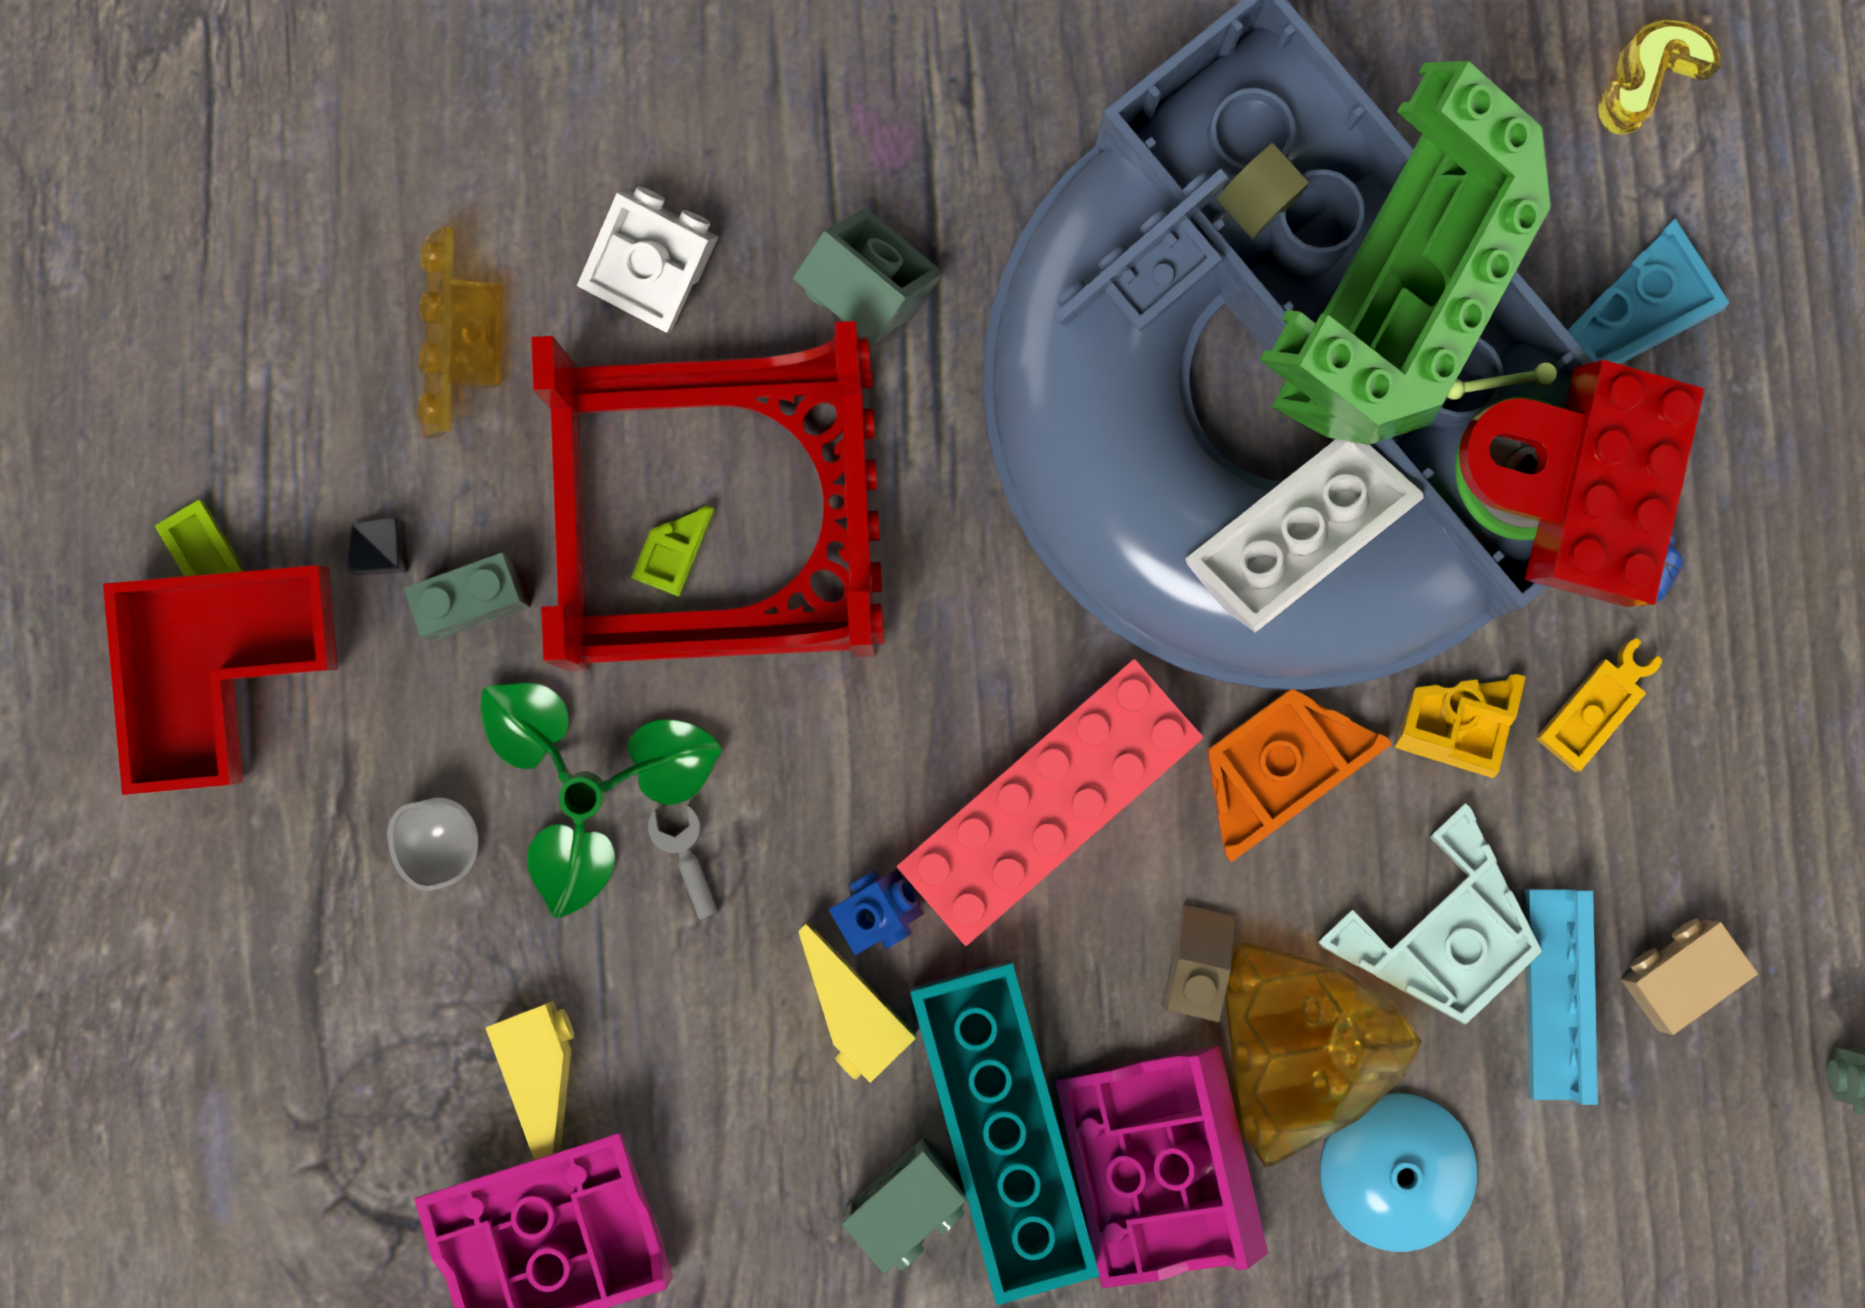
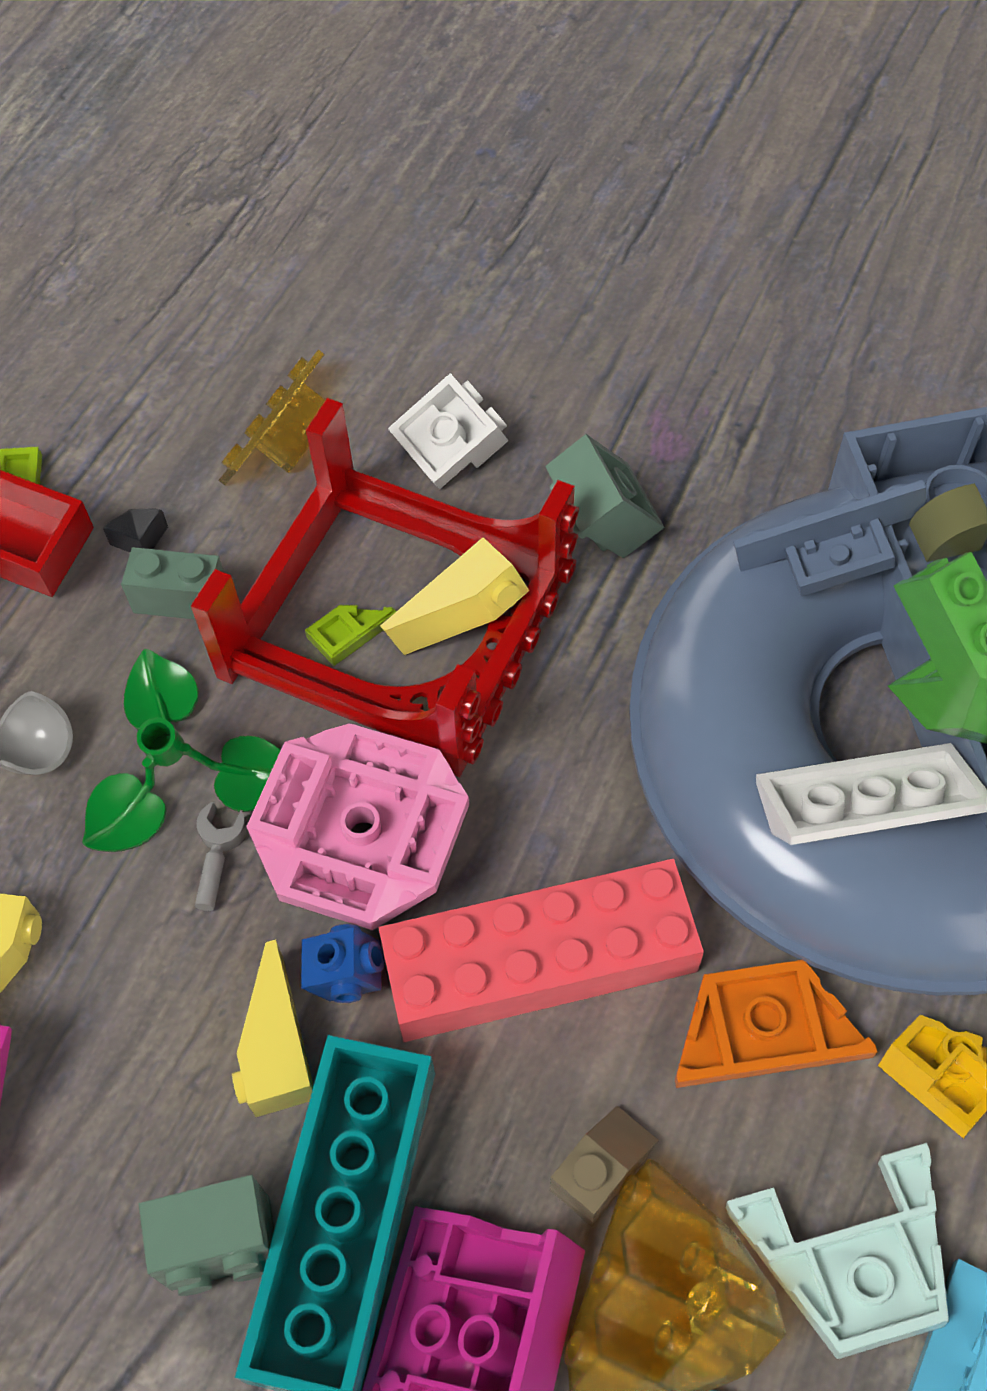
camera: 30 degrees right, 25 degrees down
(761, 758) = (348, 779): none -> bright pink piece
(785, 467) = (459, 599): none -> light yellow slope

